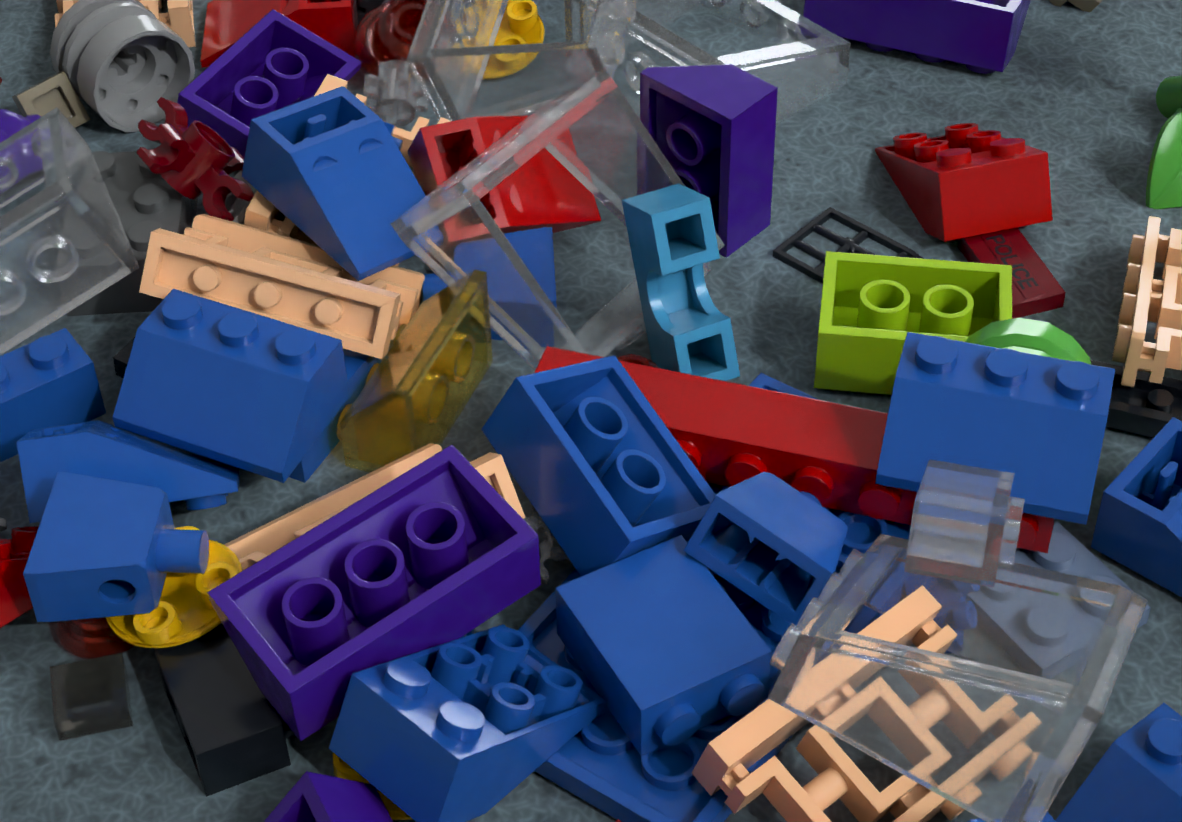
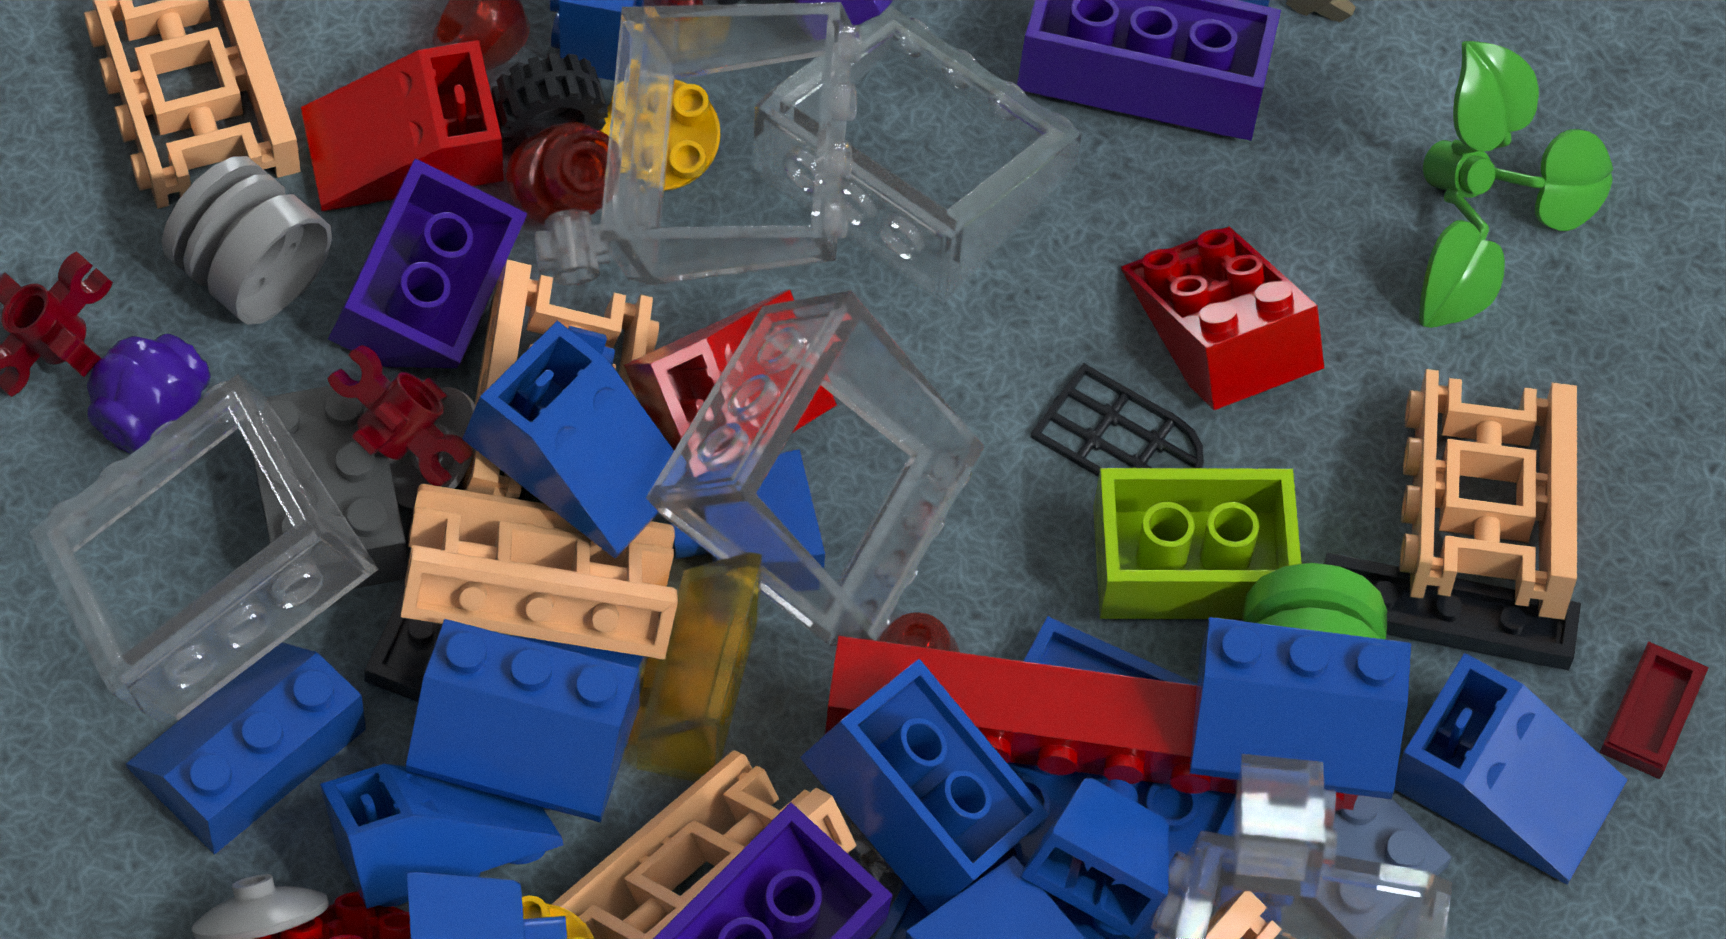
camera: 15 degrees left, 15 degrees up
(49, 94) = (173, 304): dark tan tile -> none
(669, 242) = (949, 508): dark azure arch -> none
(719, 140) = (965, 334): dark purple slope -> none
(1032, 282) = (1288, 437): dark red tile -> none

